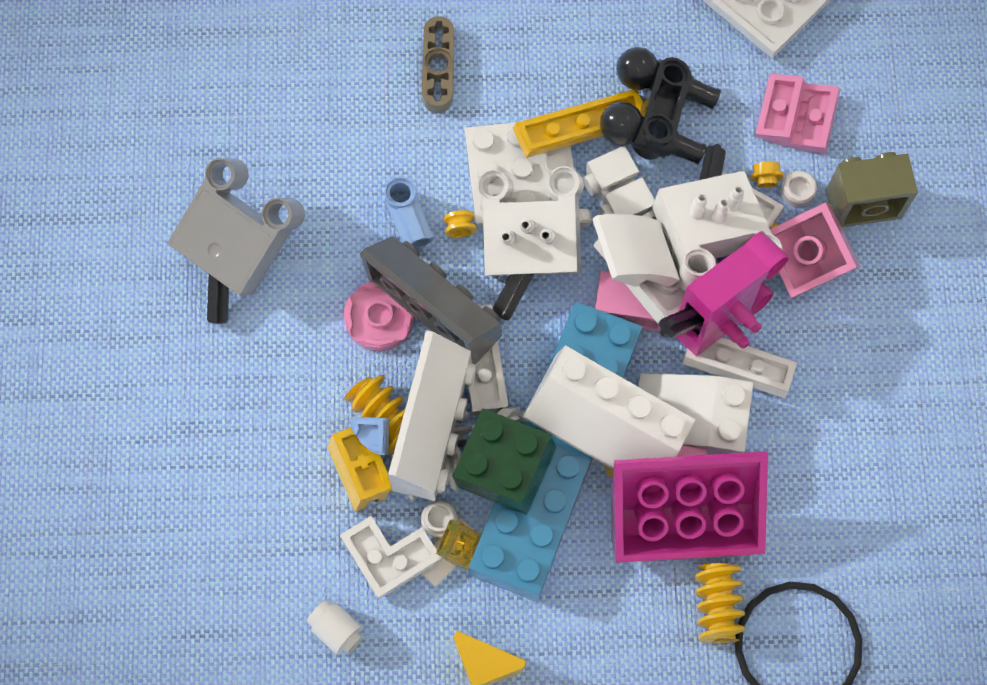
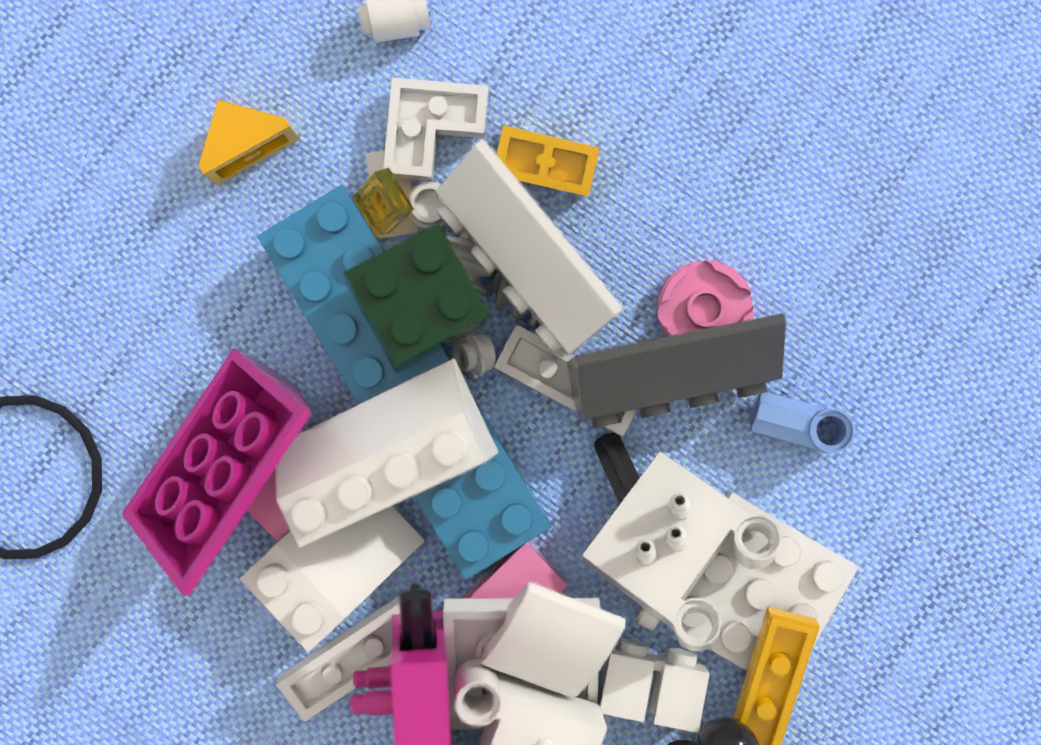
camera: 130 degrees right, 15 degrees up
(230, 236) = (921, 197): light grey piece -> none
(372, 433) = (567, 189): light blue tile -> none
(375, 402) = (597, 226): yellow piece -> none
(446, 76) = (983, 598): dark tan beam -> none
(460, 224) = (745, 473): yellow bush -> none
(719, 603) = (112, 429): yellow piece -> none

